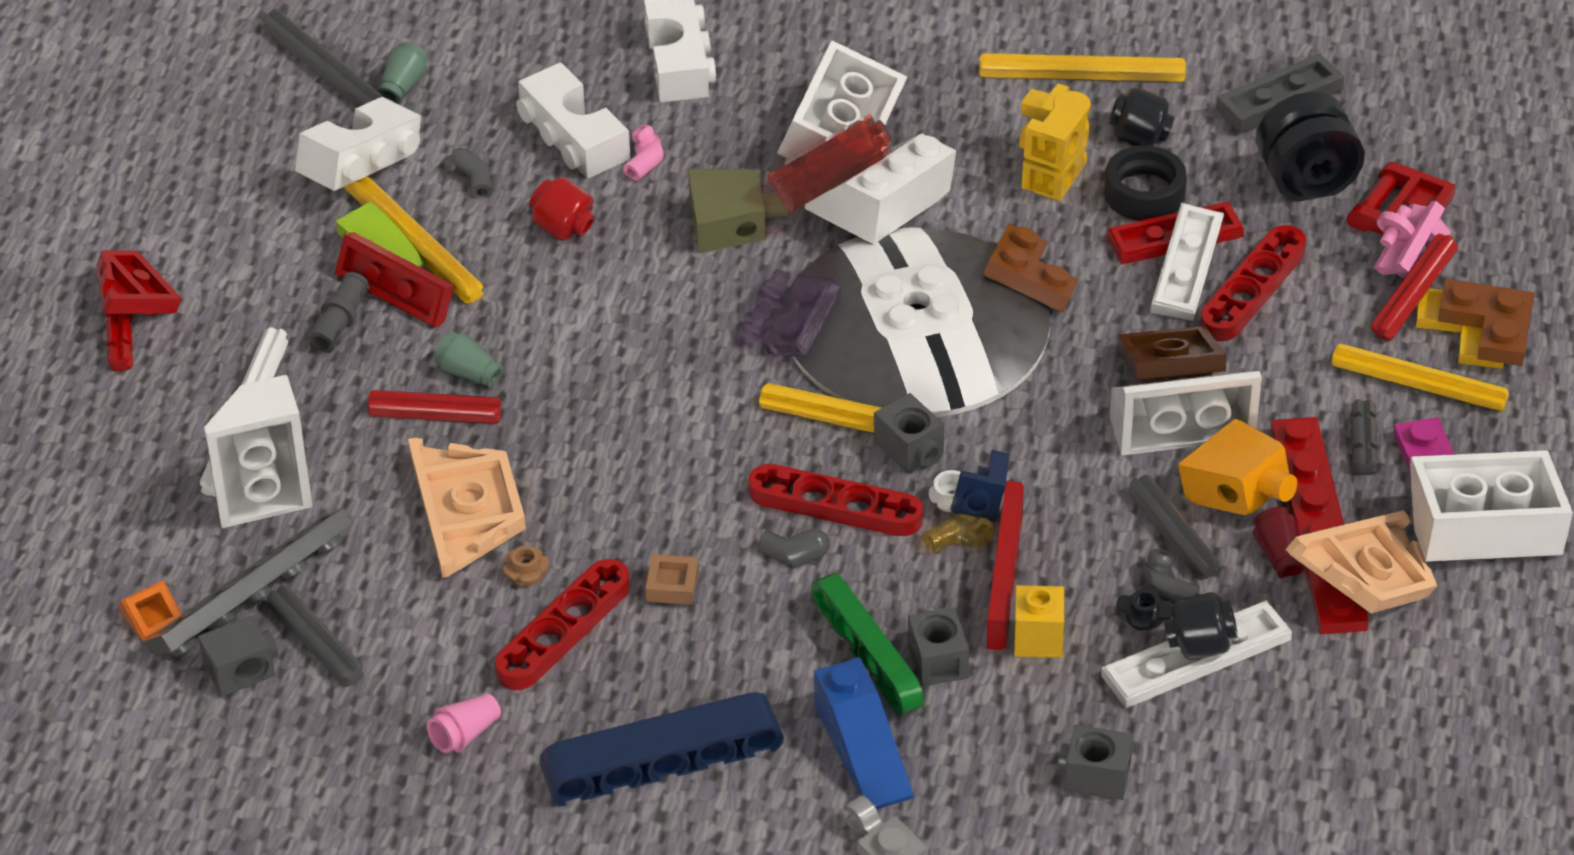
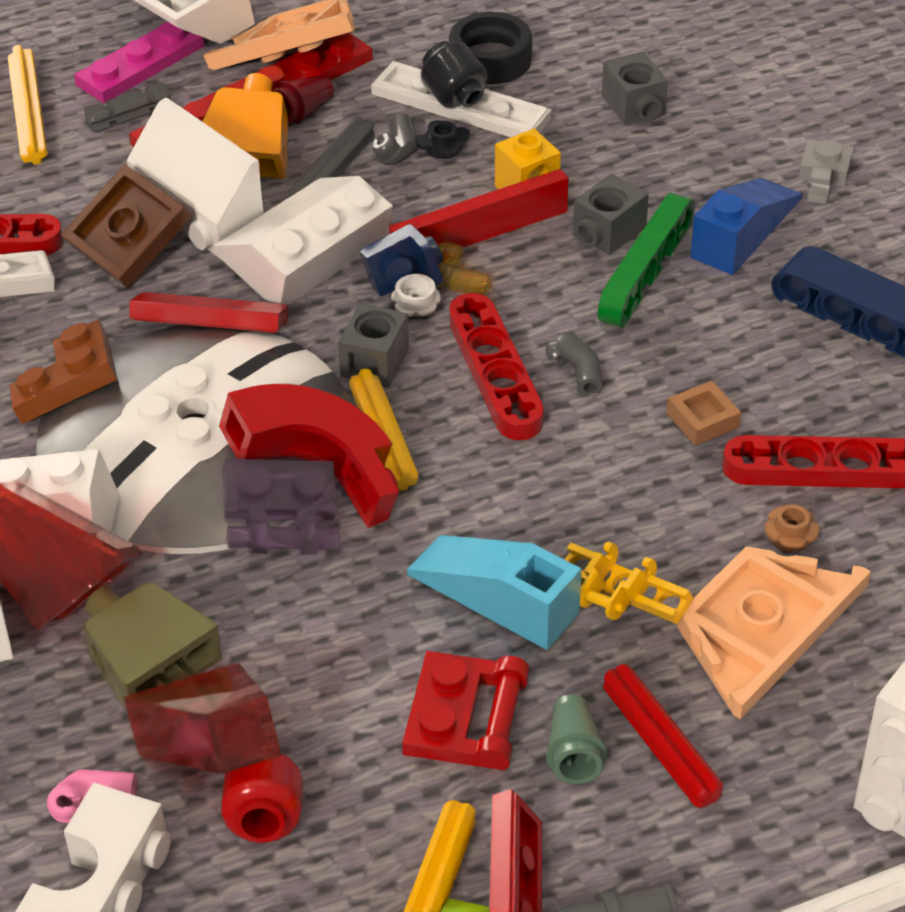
camera: 125 degrees left, 0 degrees up
(541, 444) = (629, 591): none -> yellow piece
(551, 323) = (446, 706): none -> red plate
(610, 379) = (505, 582): none -> medium azure slope
(622, 190) = (204, 721): none -> clear red slope
(823, 345) = (314, 426): none -> red arch
(1034, 369) = (209, 312): none -> red tile
(1070, 445) = (306, 237): none -> white slope
(1248, 732) = (497, 28): none -> black tyre

